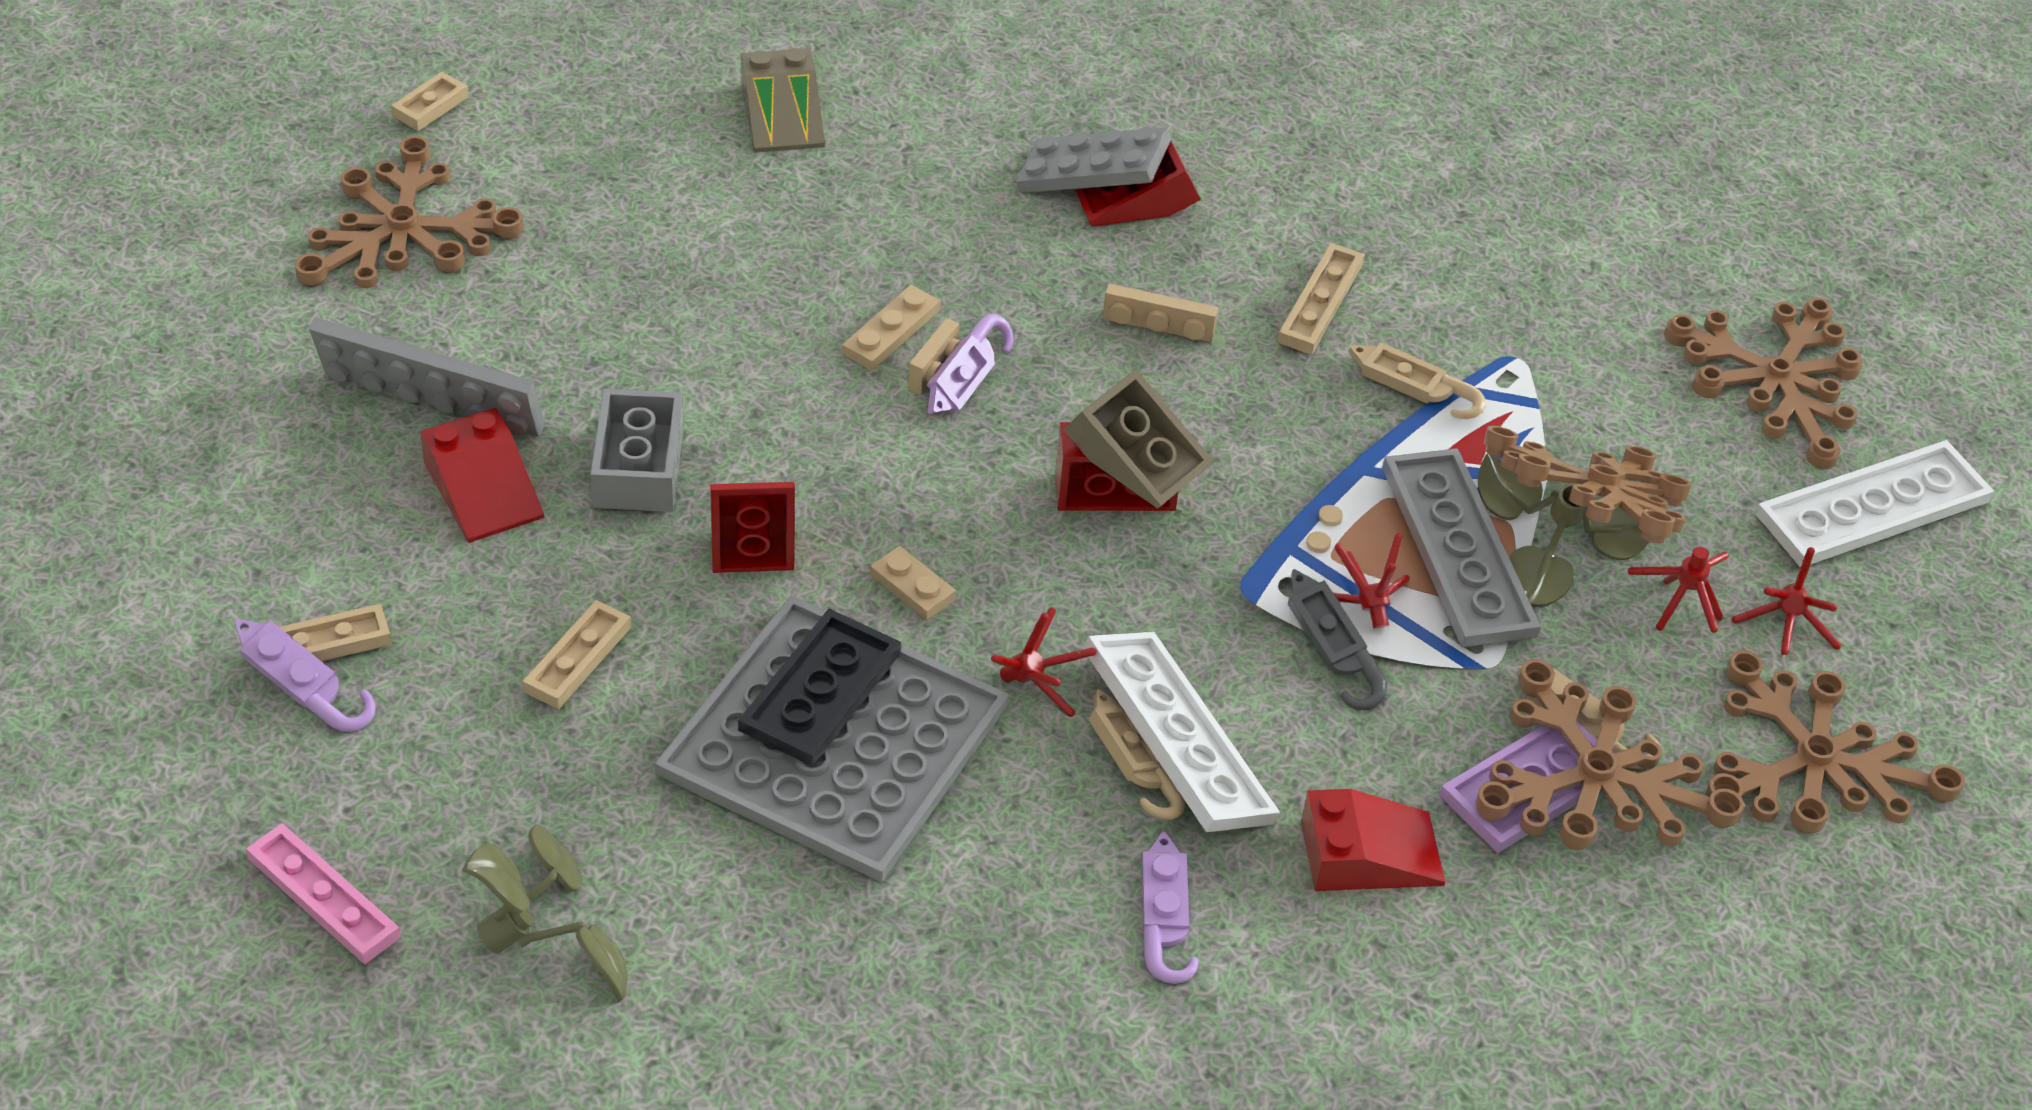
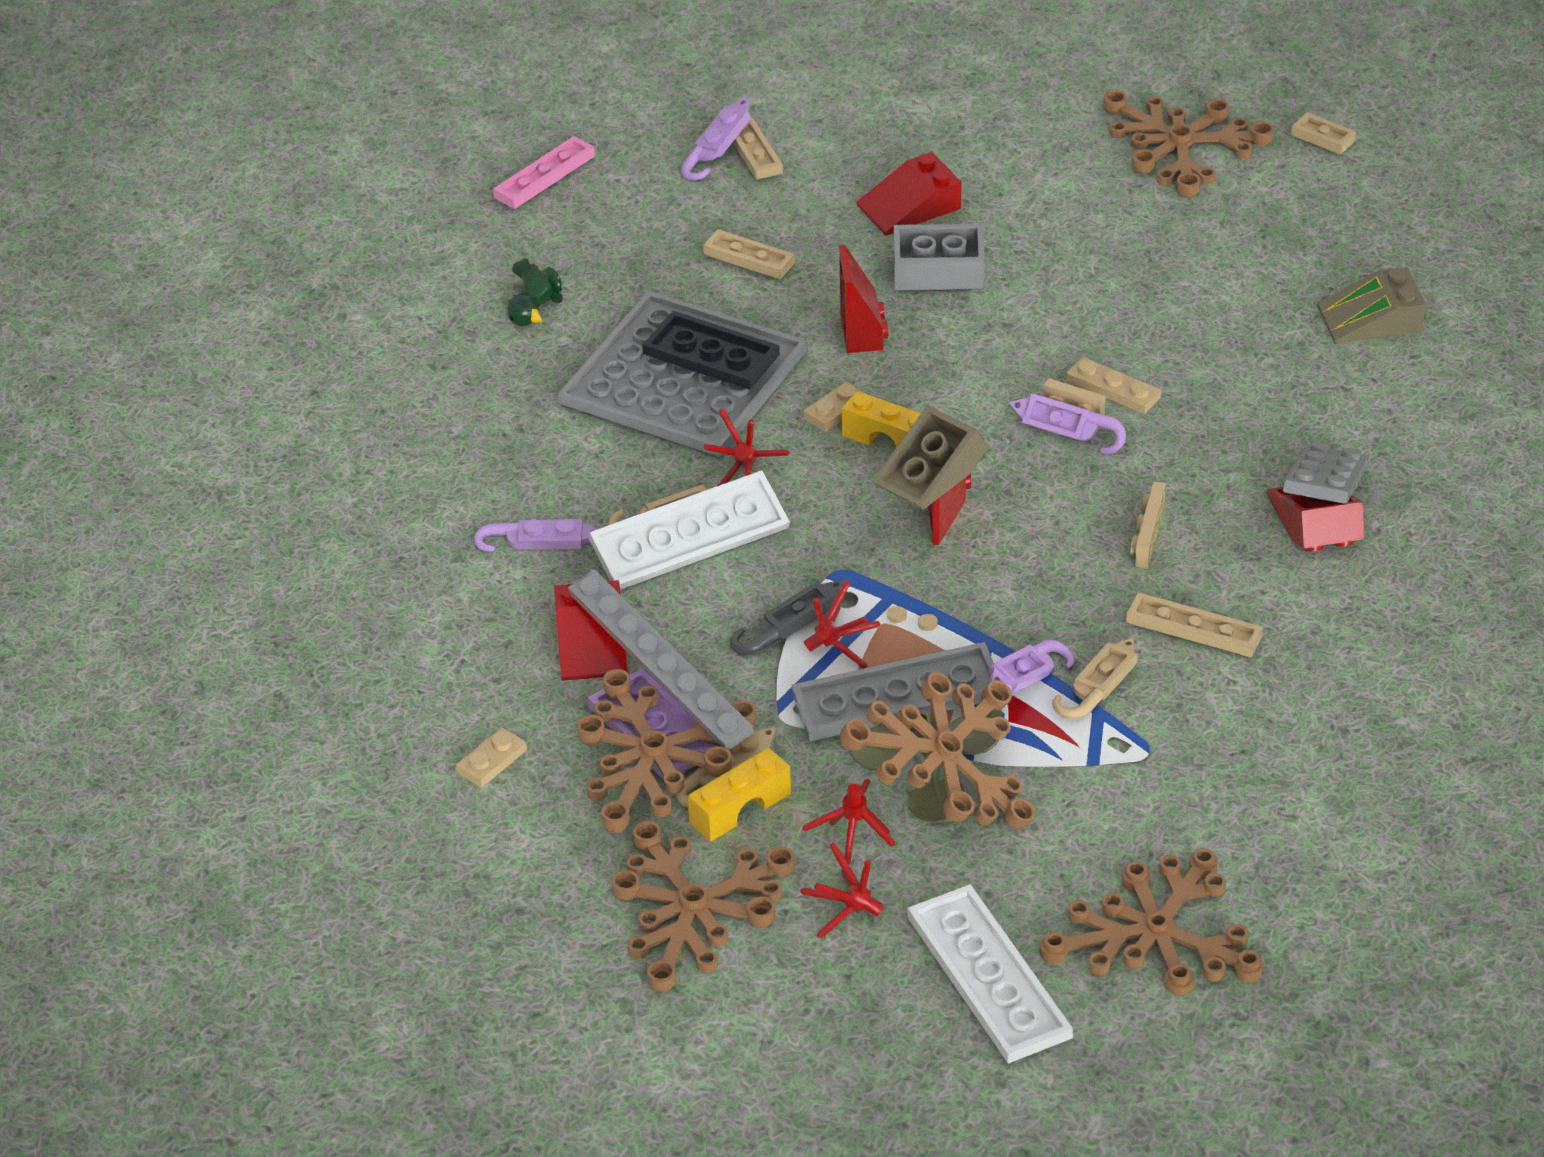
camera: 95 degrees right, 5 degrees down
(425, 376) = (991, 153): light grey plate -> none
(513, 919) = (505, 200): olive plant -> none
(632, 897) = (537, 290): none -> dark green animal
(962, 537) = (868, 416): none -> yellow arch
(1420, 426) = (1029, 664): none -> lavender plate
(1465, 745) = (661, 660): none -> light grey plate
(1603, 957) = (491, 757): none -> tan plate
(1678, 712) = (717, 804): none -> yellow arch

